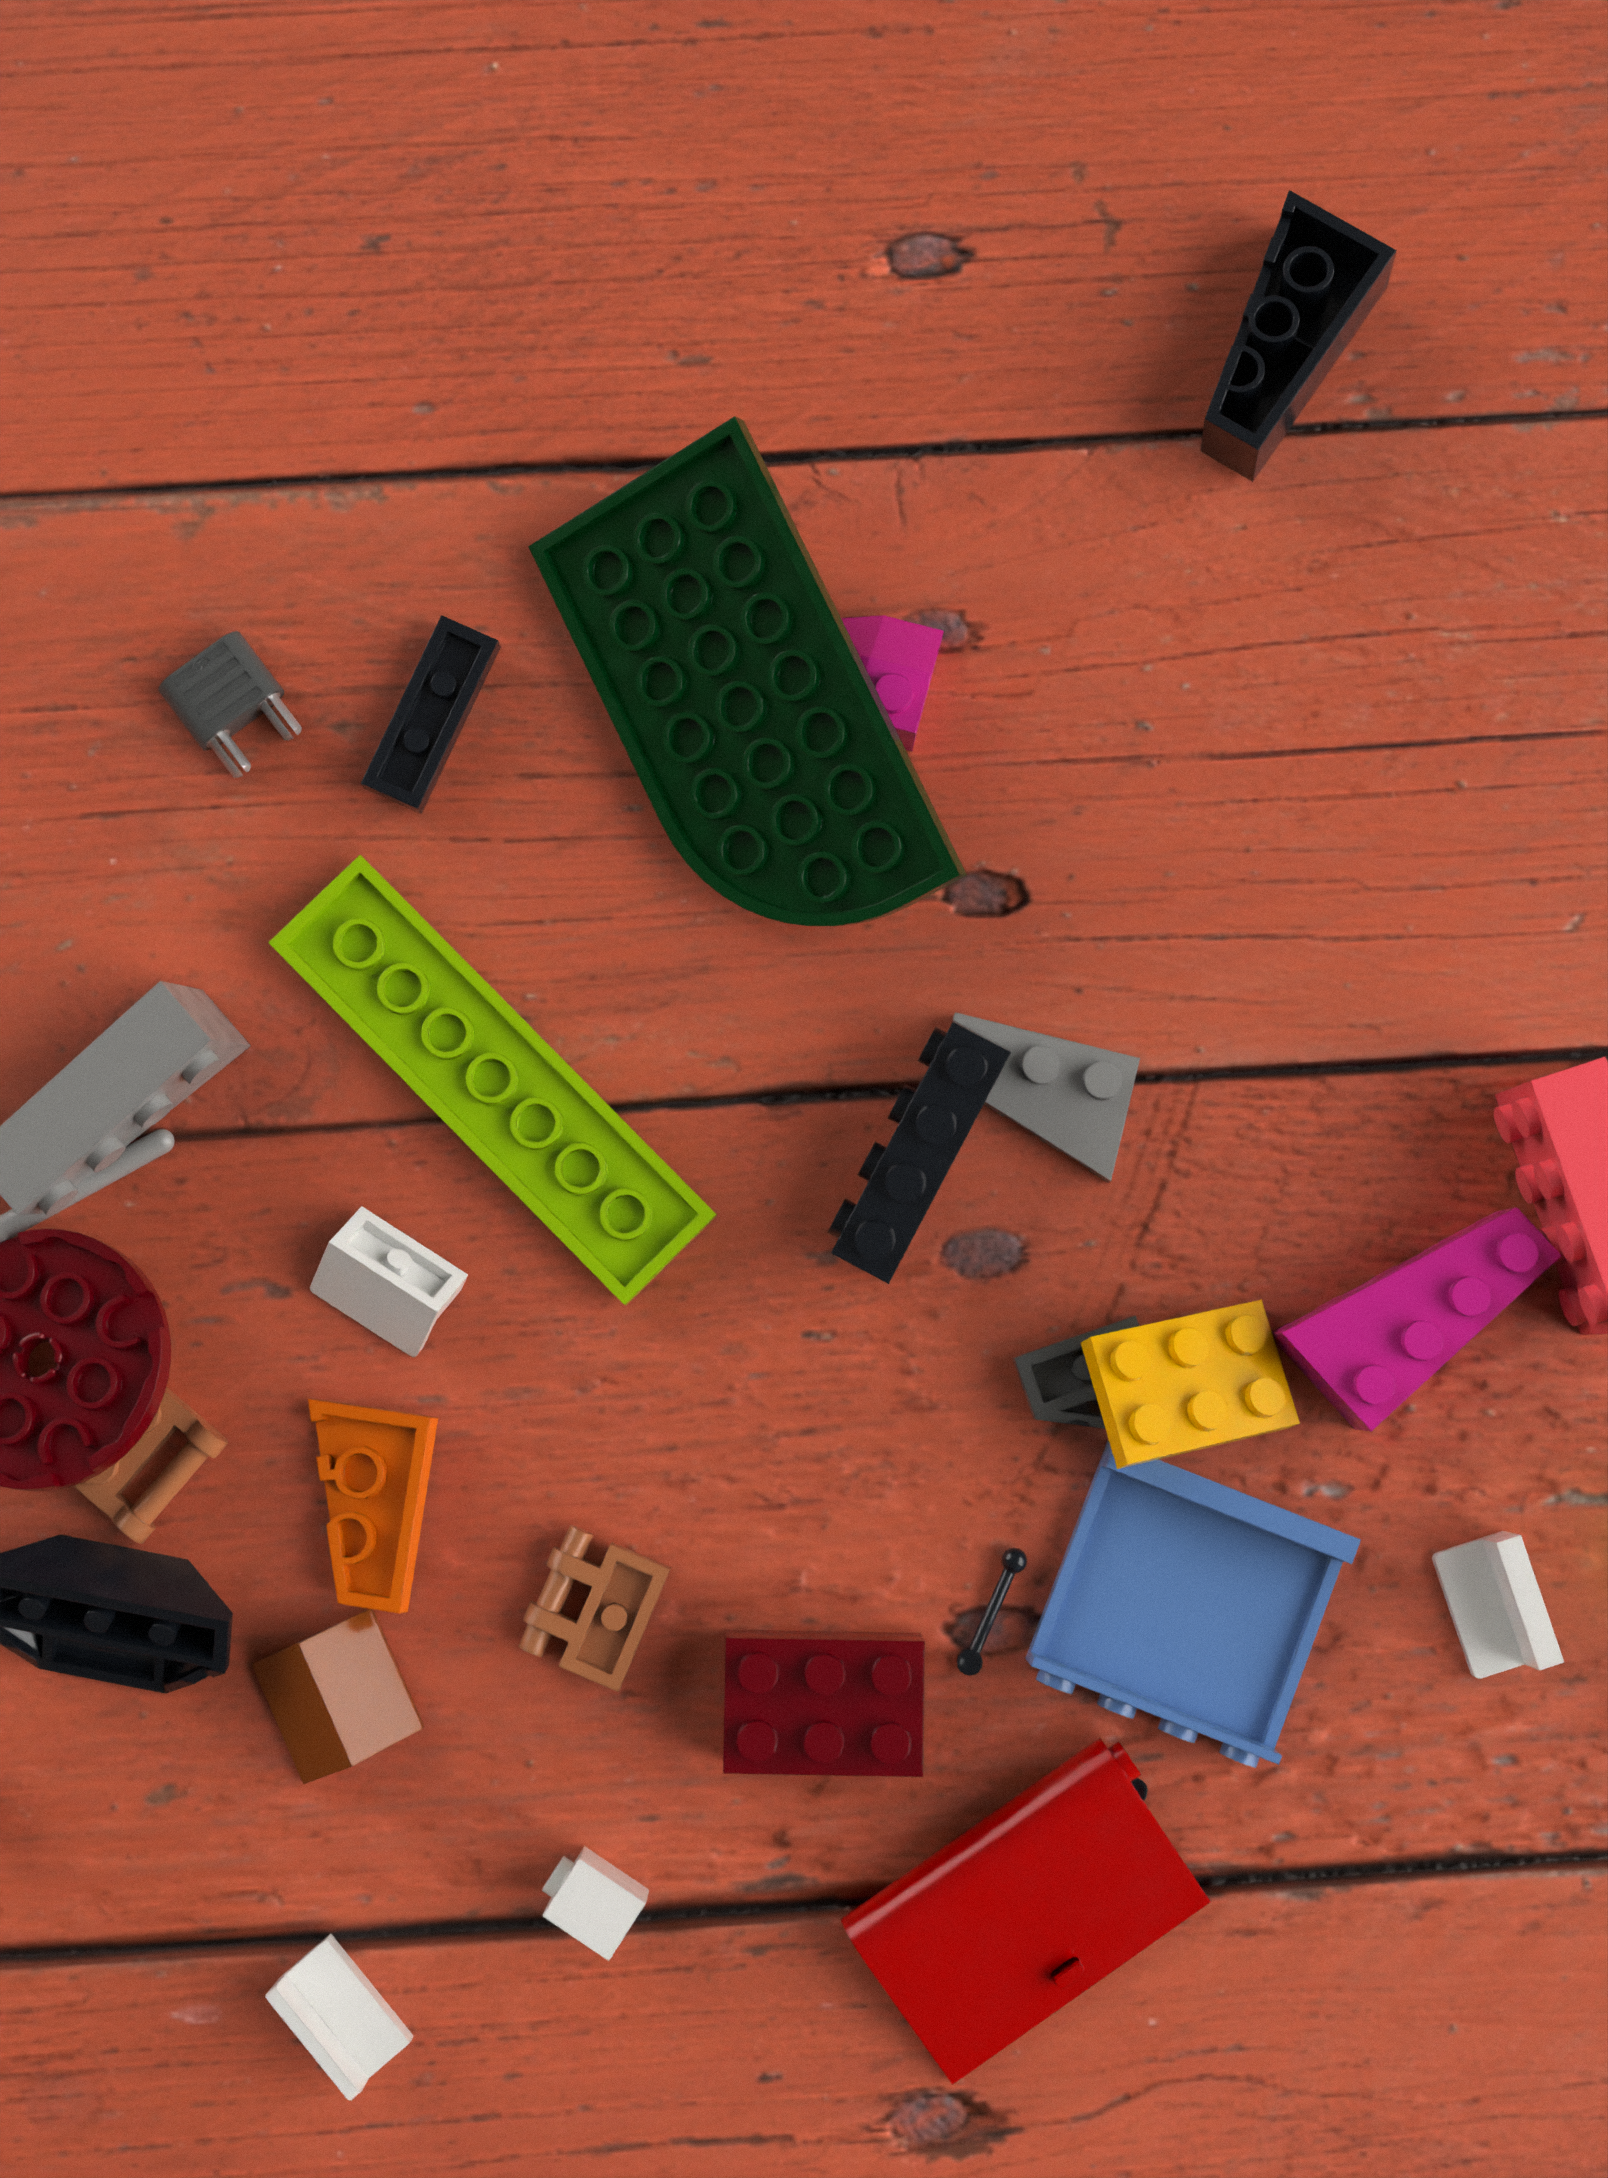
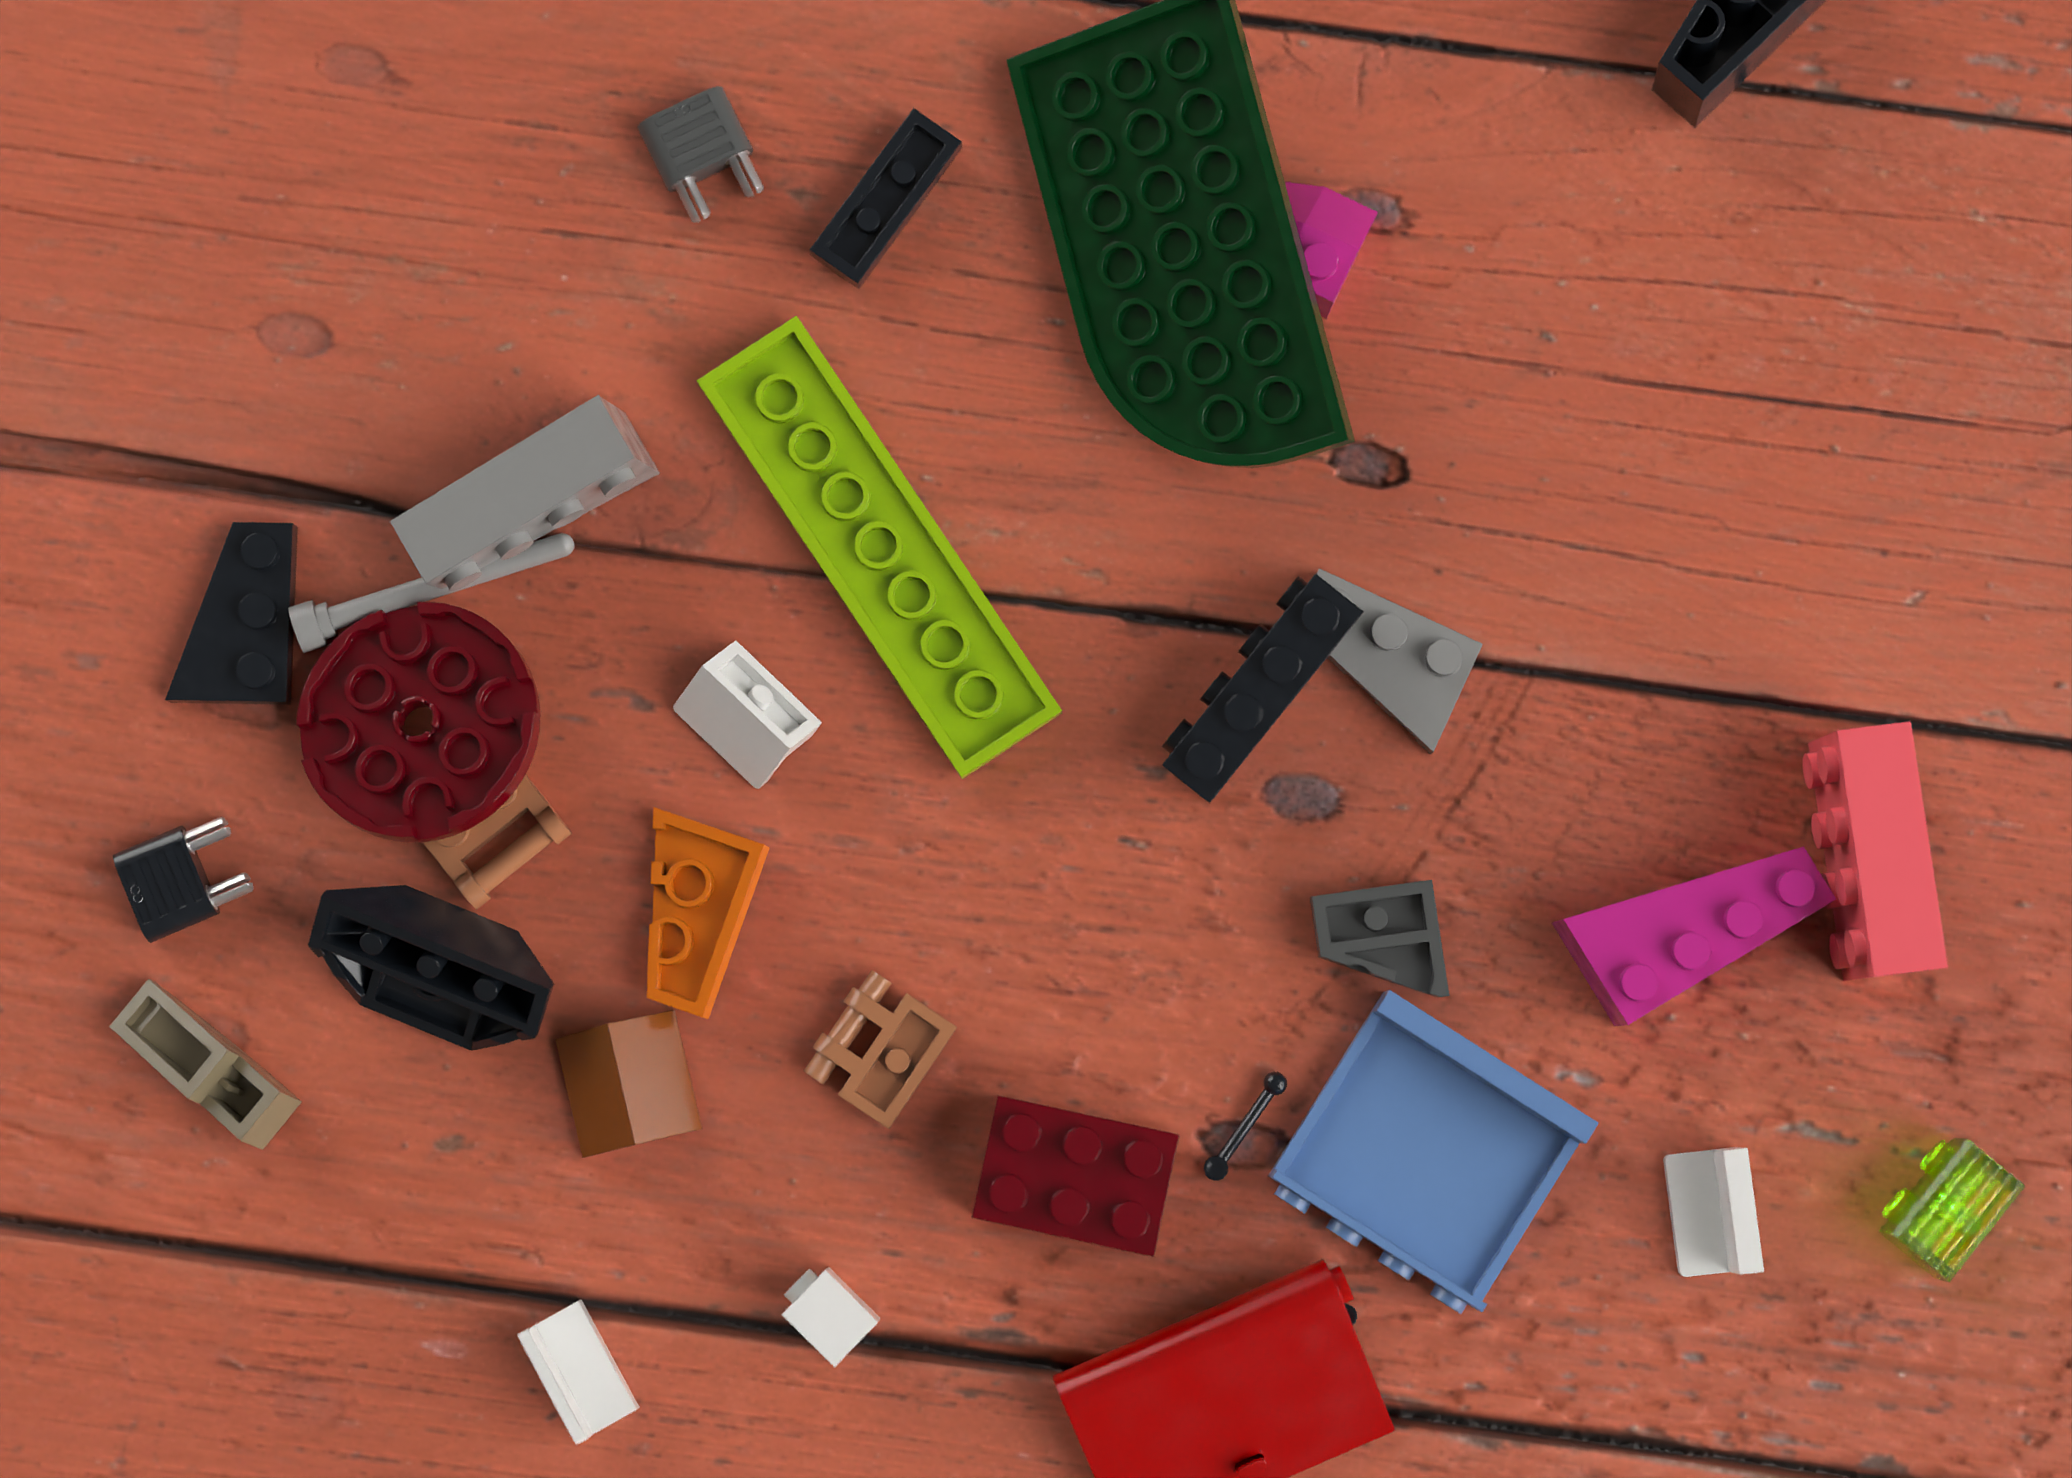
camera: 10 degrees right, 0 degrees up
(1189, 1383) = (1469, 950): yellow plate -> none

